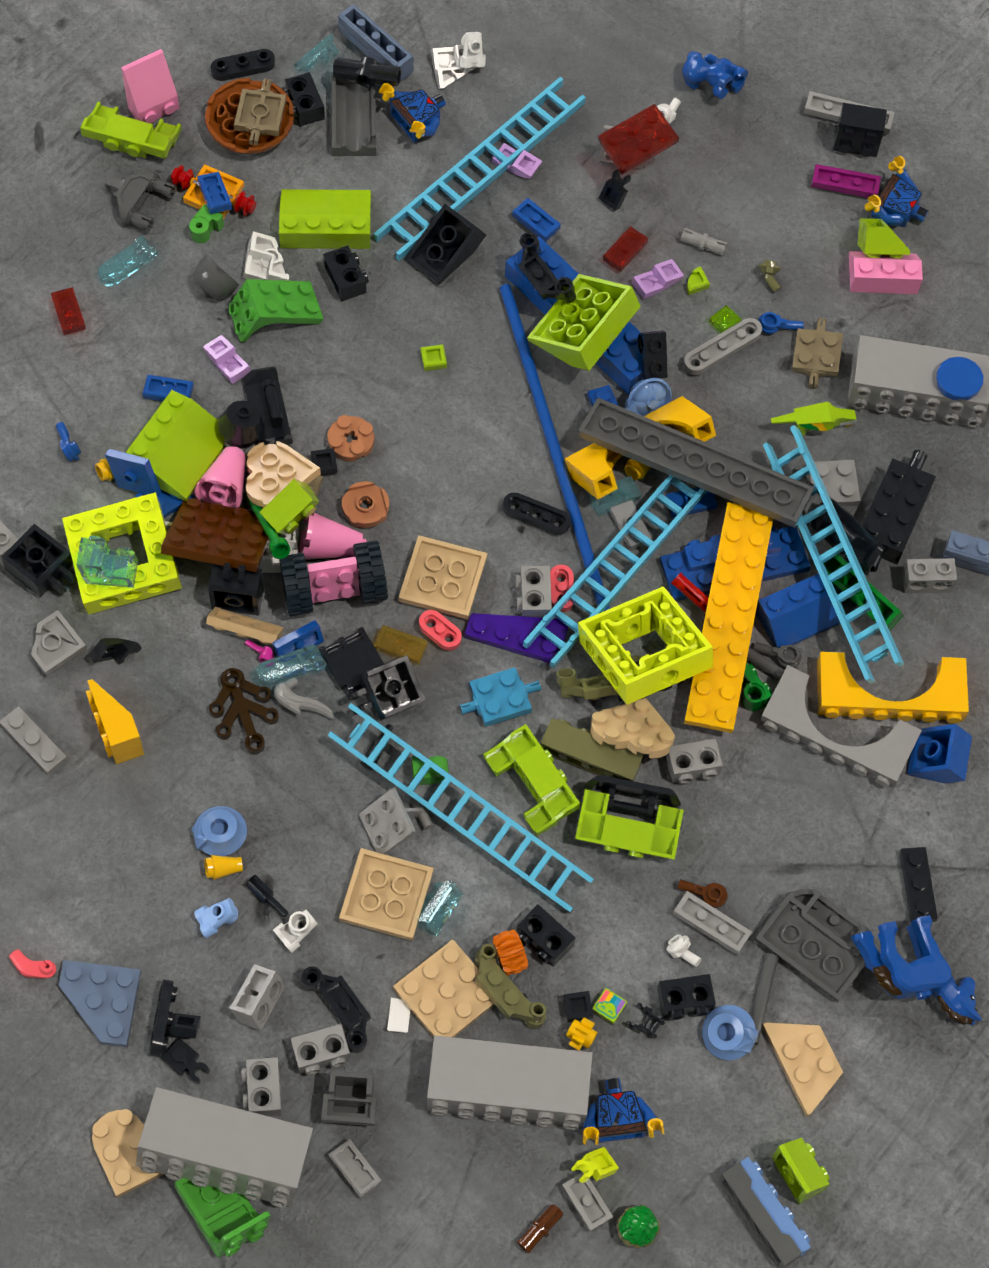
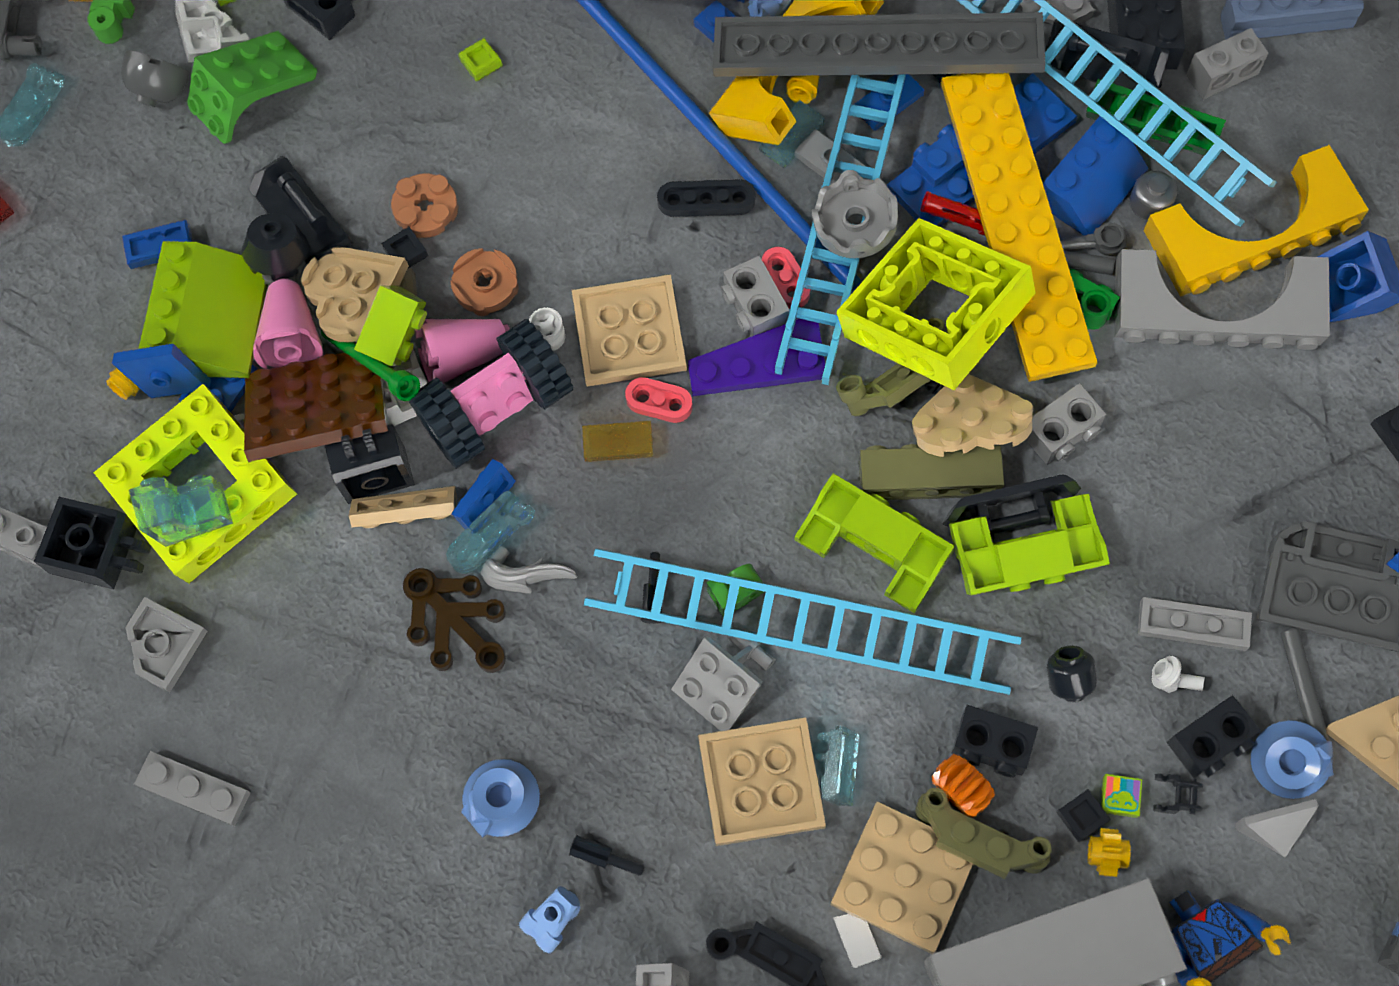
camera: 15 degrees left, 5 degrees up
(69, 448) = (63, 376): blue plate -> none
(113, 648) = (243, 614): black slope -> none
(114, 725) = (306, 728): yellow slope -> none
(222, 866) = (526, 844): yellow cone -> none
(226, 359) = (216, 173): lavender slope -> none
(265, 652) = (447, 529): dark pink hand -> none
(291, 933) = (661, 893): white plate -> none
(351, 659) = (568, 490): black plate -> none
(374, 686) = (613, 509): black hinge -> none
(391, 548) = (549, 321): none -> white wheel
(500, 697) = (777, 452): dark azure plate -> none
(615, 916) = (1071, 673): none -> black head
(622, 553) = (855, 196): none -> light grey plate
(699, 1068) = (1278, 827): none -> light grey slope
(712, 894) = (1174, 586): reddish brown plate -> none
(831, 638) = (1152, 193): none -> flat silver head

